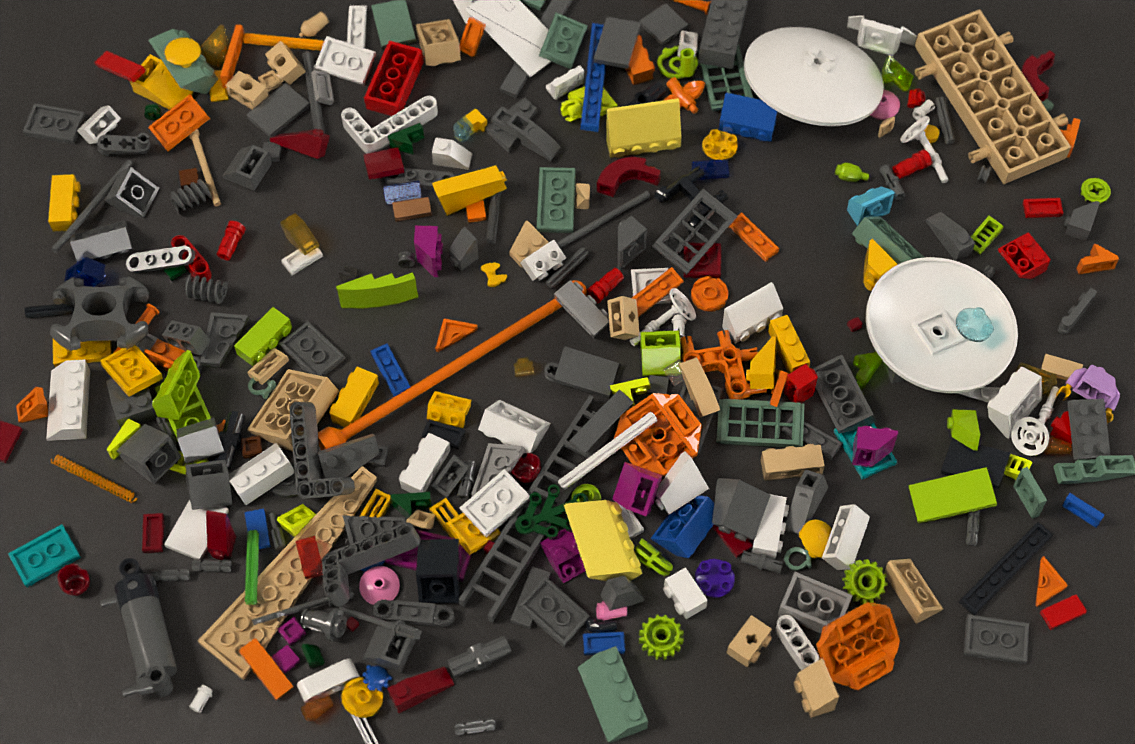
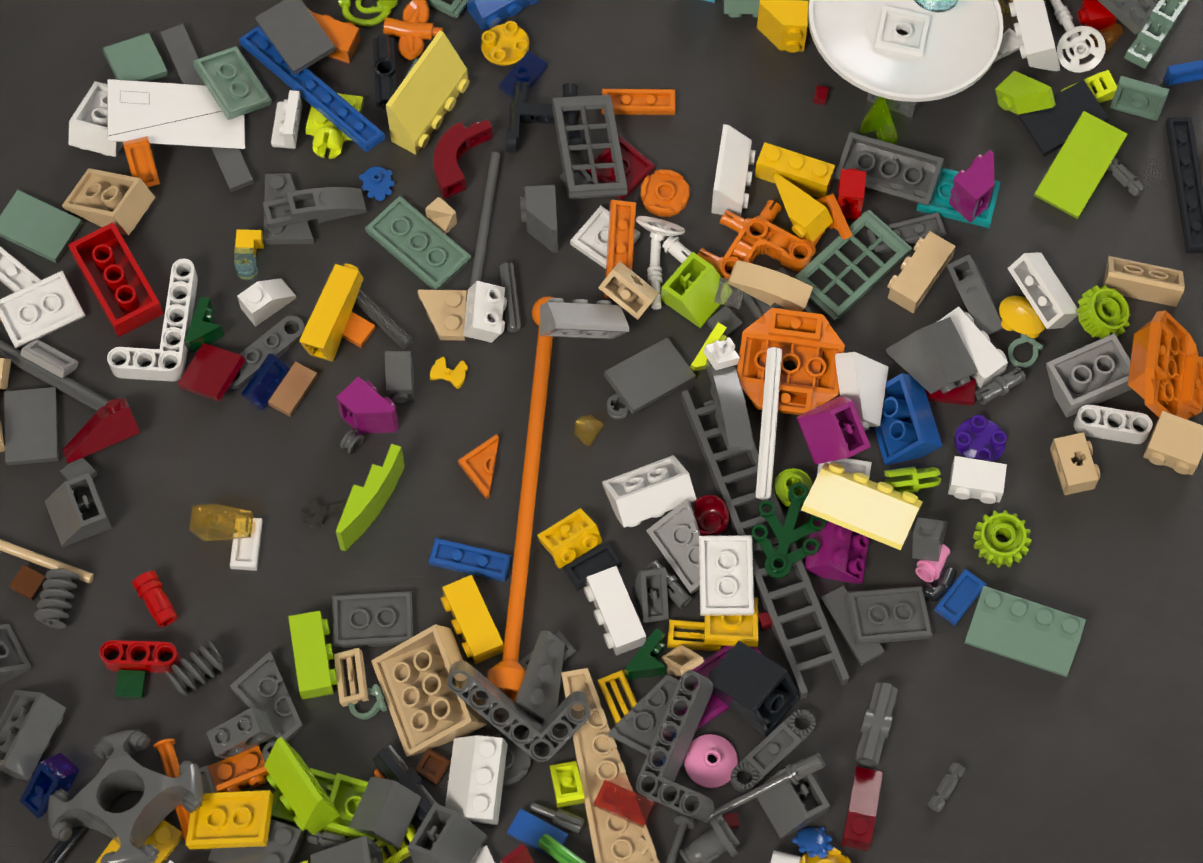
camera: 50 degrees left, 5 degrees up
(160, 259) = (112, 688): plate -> none
(573, 152) = (377, 182): none -> blue piece
(607, 283) = (566, 276): red axle -> none
(628, 394) = (721, 354): none -> white tile

